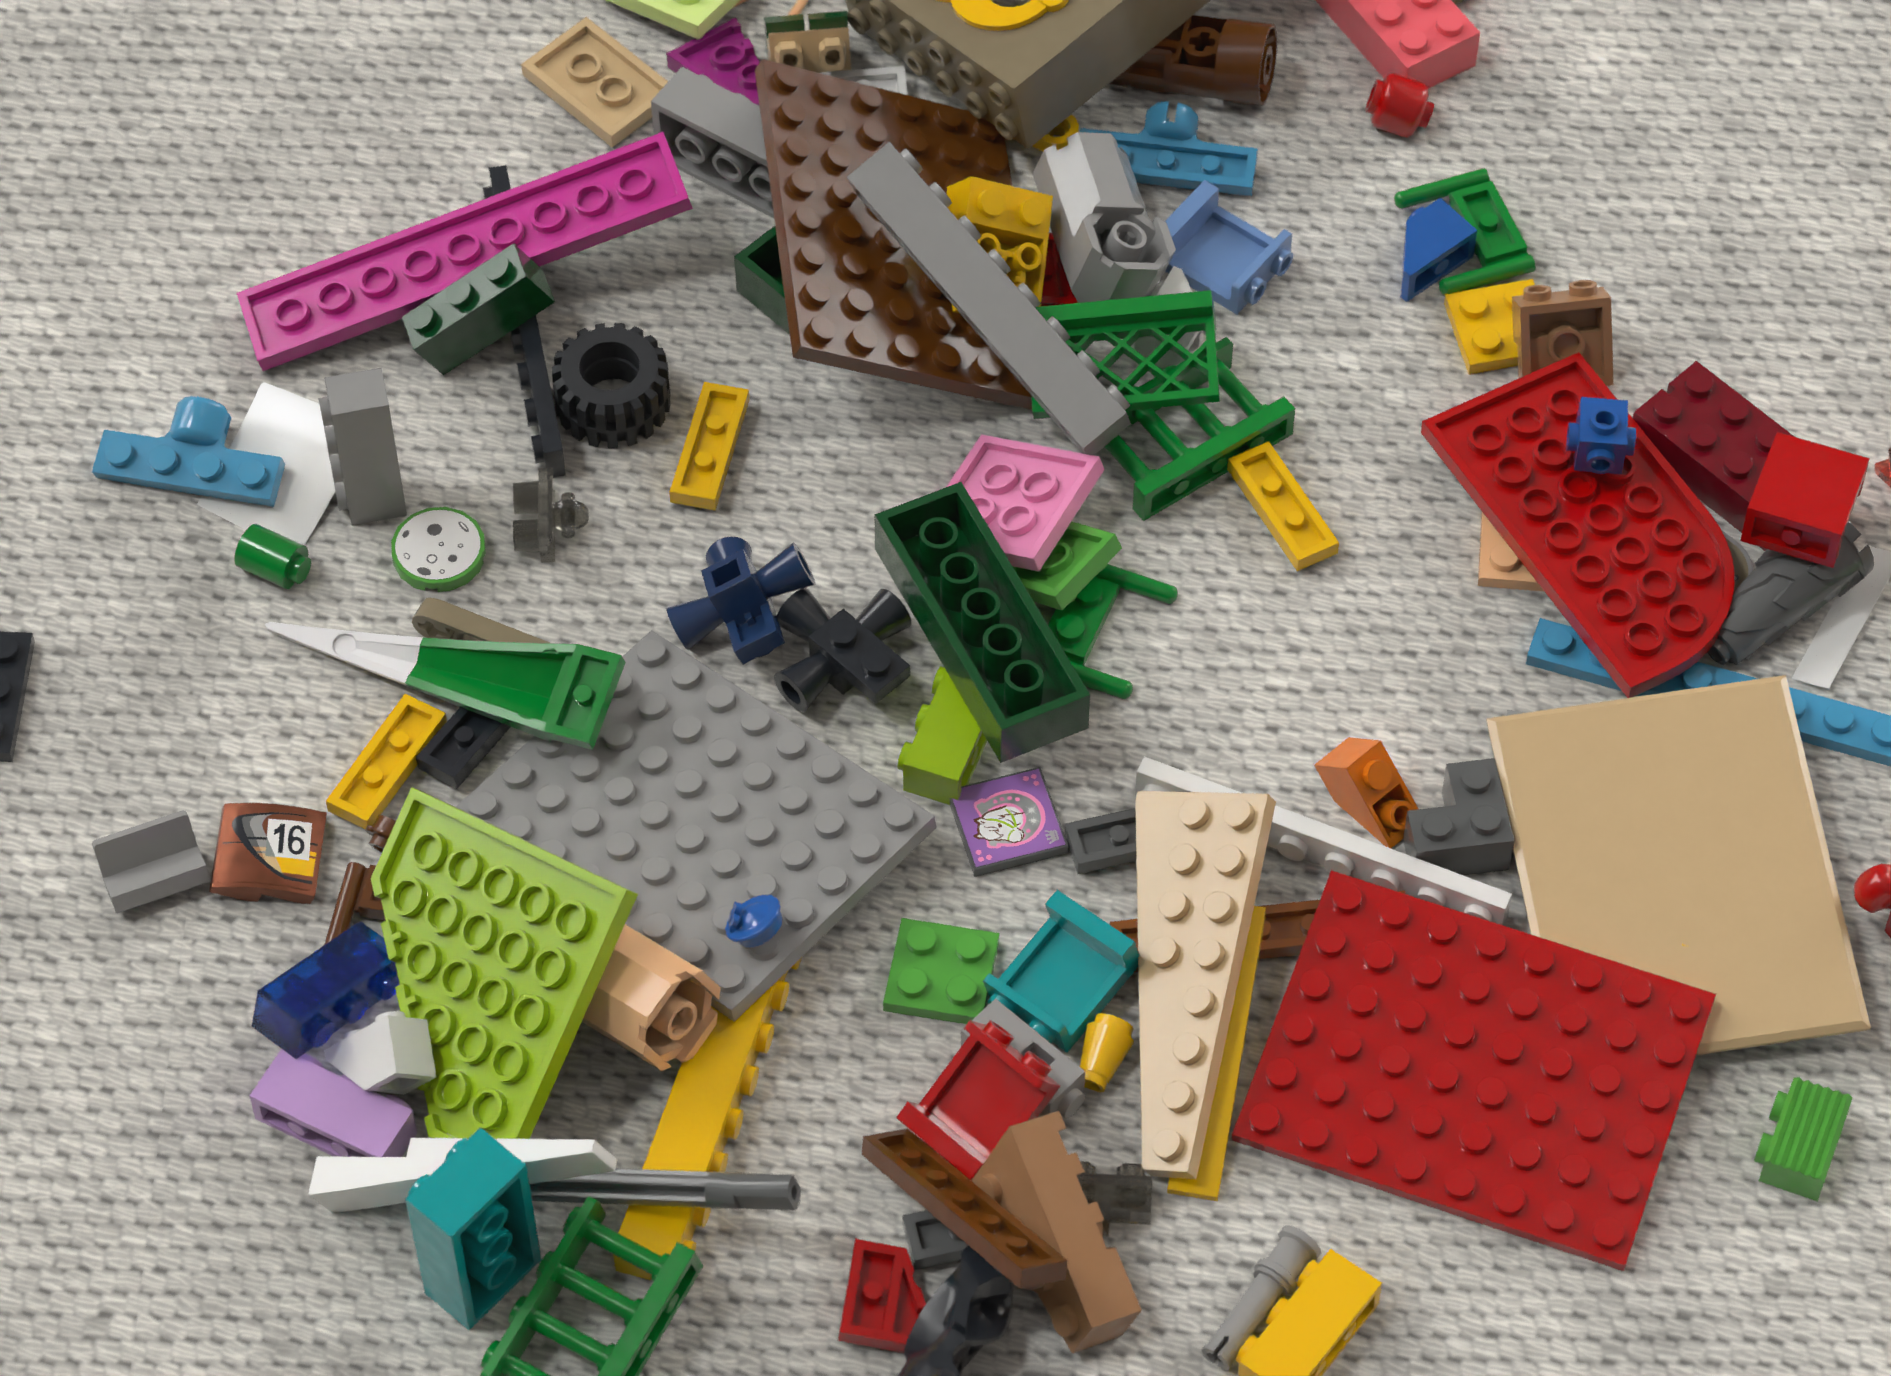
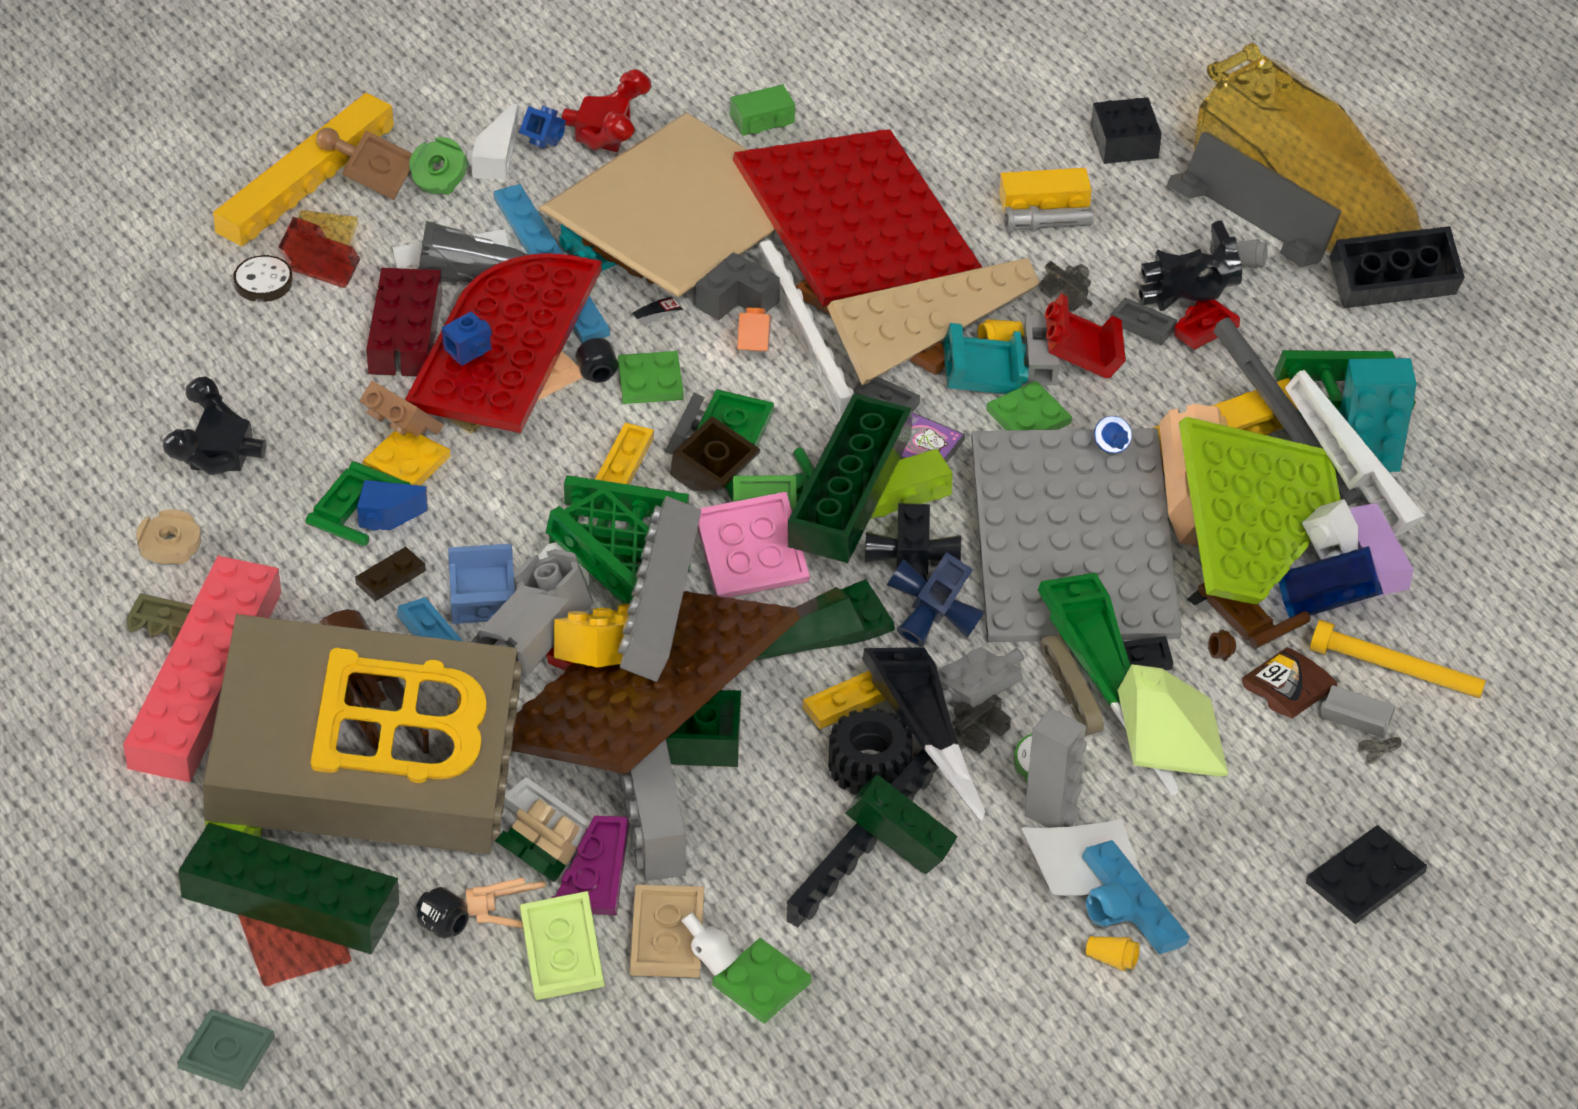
camera: 135 degrees left, 10 degrees down
(89, 868) = (1378, 748): none -> clear smoke piece
(151, 396) = (1114, 951): none -> yellow cone
(272, 556) = (1140, 813): green brick -> none
(276, 940) = (1326, 638): none -> yellow piece
(334, 674) = (1170, 723): none -> yellowish green slope
(385, 762) = (1205, 672): yellow plate -> none
(405, 269) = (872, 863): dark pink plate -> none
(462, 116) = (762, 980): none -> bright green plate
(533, 84) = (710, 945): none -> white piece
(605, 565) = (980, 676): none -> light grey plate
(636, 462) = (914, 691): none -> black plate
(838, 501) = (834, 620): none -> dark green plate
(965, 1209) = (1149, 287): reddish brown plate -> none
(1041, 1188) = (1111, 274): medium nougat wedge -> none
(1180, 566) = (711, 457): none -> dark brown slope
(1237, 659) = (740, 413): none -> green plate
(1265, 586) = (691, 416): none -> dark grey plate
(1329, 197) = (390, 573): none -> dark brown plate
(1399, 105) = (298, 576): red head -> none
(1404, 641) = (650, 377): none -> bright green plate
(1480, 599) = (596, 360): none -> black head
(1577, 69) = (168, 551): none -> tan plate
(1688, 169) = (220, 438): none -> black torso
(1804, 499) = (428, 238): red panel -> none

